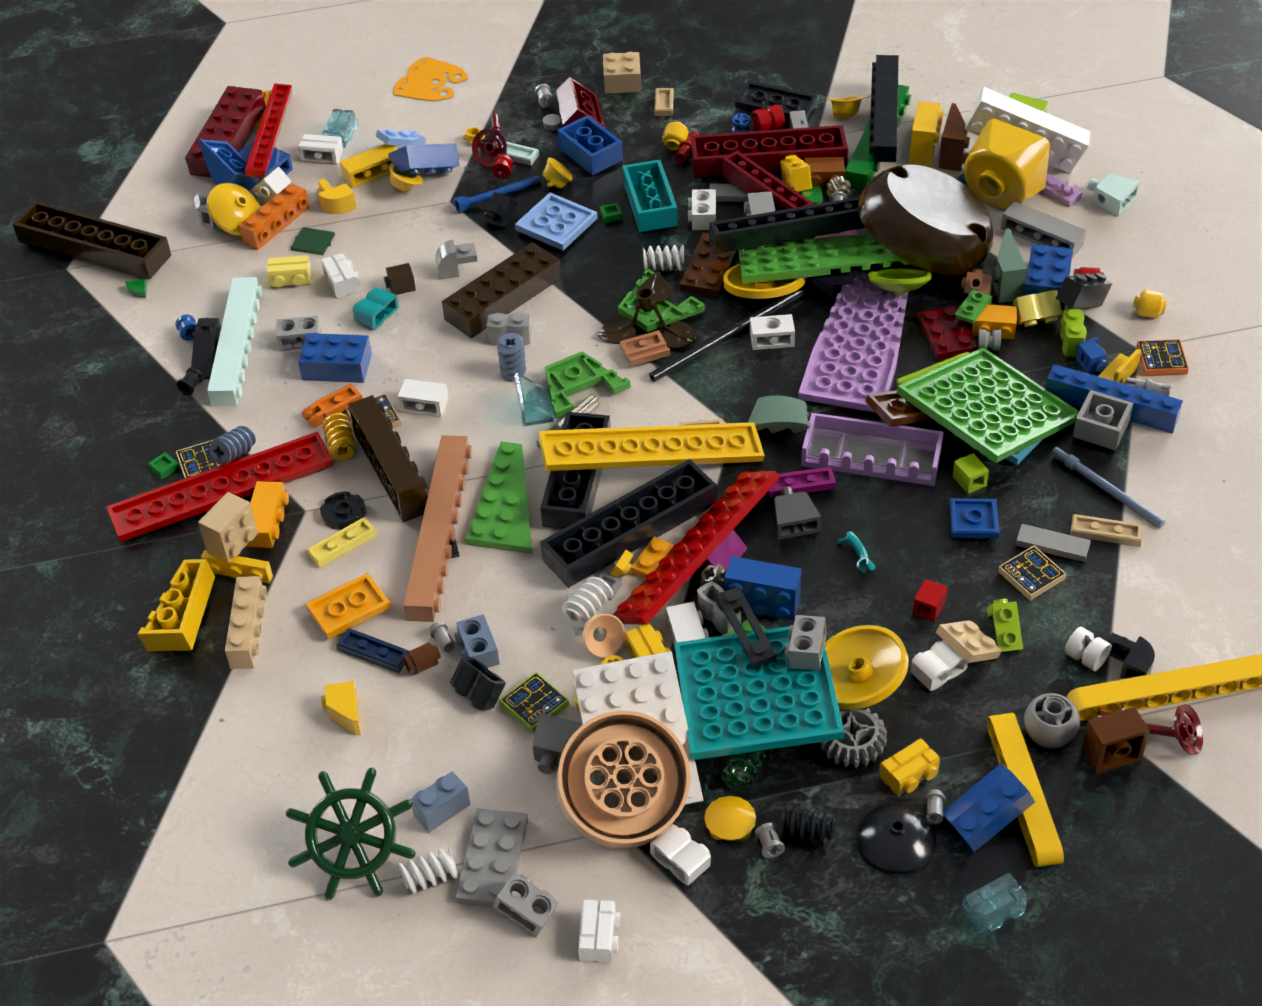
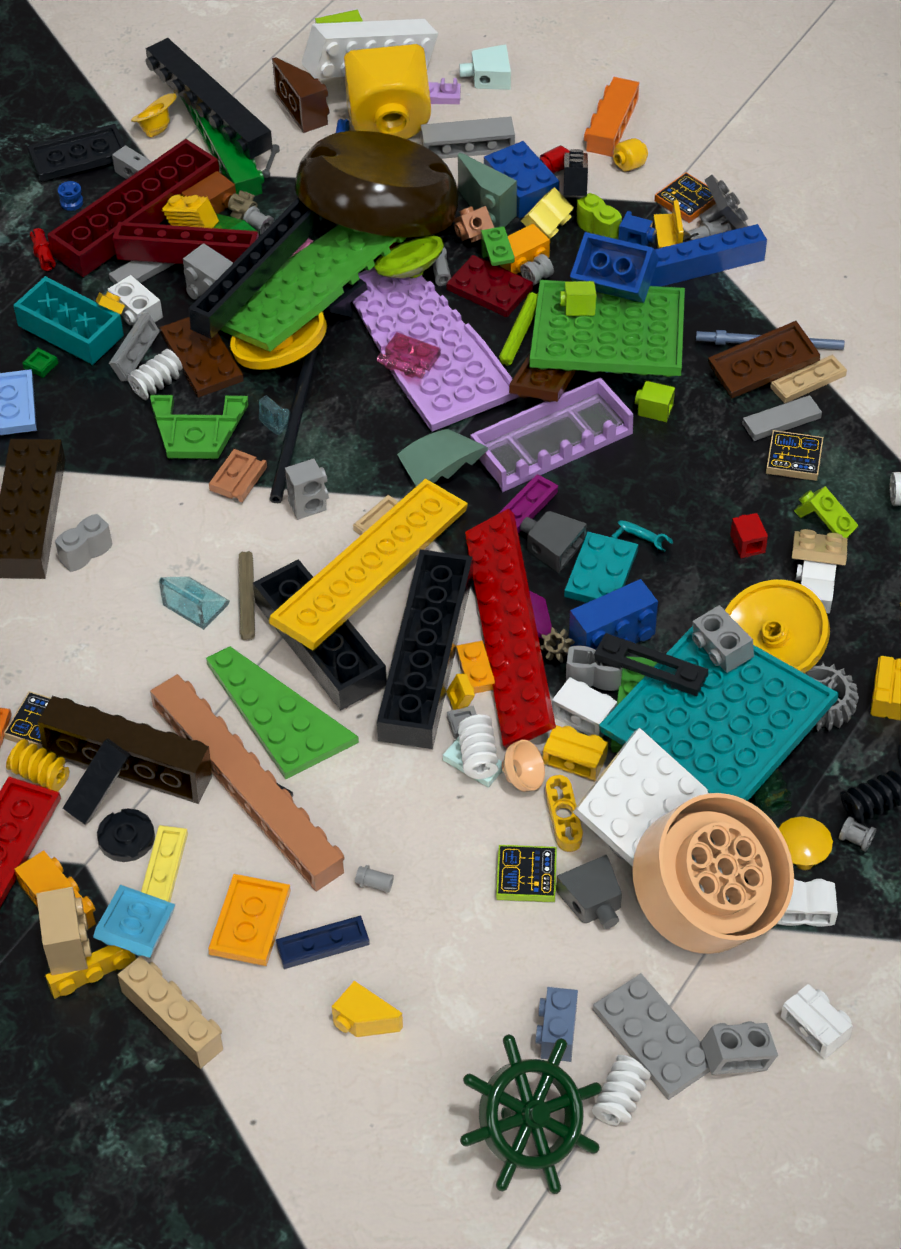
camera: 45 degrees left, 5 degrees up
(181, 609) = (94, 1058): yellow wedge -> none
(280, 555) = (134, 921): none -> medium azure plate
(350, 463) = (96, 781): none -> black tile
(421, 658) = (382, 913): reddish brown brick -> none
(423, 397) = (76, 668): white brick -> none
(477, 640) = (419, 854): sand blue brick -> none
(477, 683) = (466, 894): black brick -> none
(511, 355) = (127, 566): sand blue piece -> none
(577, 374) = (200, 546): bright green wing -> none
(652, 291) = (188, 411): dark brown plant -> none
(669, 379) = (306, 488): none -> light grey brick
(673, 234) = (134, 346): none -> light grey tile
(674, 135) = (18, 244): yellow head -> none
(679, 196) = (110, 301): none -> yellow plate
(708, 328) = (273, 415): none -> clear light blue tile
(771, 118) = (95, 174): red wheel -> none
(772, 332) = (340, 383): white brick -> none
(810, 551) = (600, 567): none -> teal plate
(837, 341) = (409, 355): none -> clear pink plate
(925, 133) = (264, 102): yellow wedge -> none
(926, 300) = (441, 269): none -> light grey bar
(974, 518) = (701, 439): blue plate -> none
(984, 370) = (579, 298): none -> lime brick
(1031, 364) = (615, 266): none -> blue brick
(1082, 494) = (764, 359): none -> reddish brown plate
(1102, 420) = (711, 282): light grey brick -> none
(1169, 271) = (612, 116): none -> orange brick
(1177, 374) = (725, 204): none -> flat silver plate

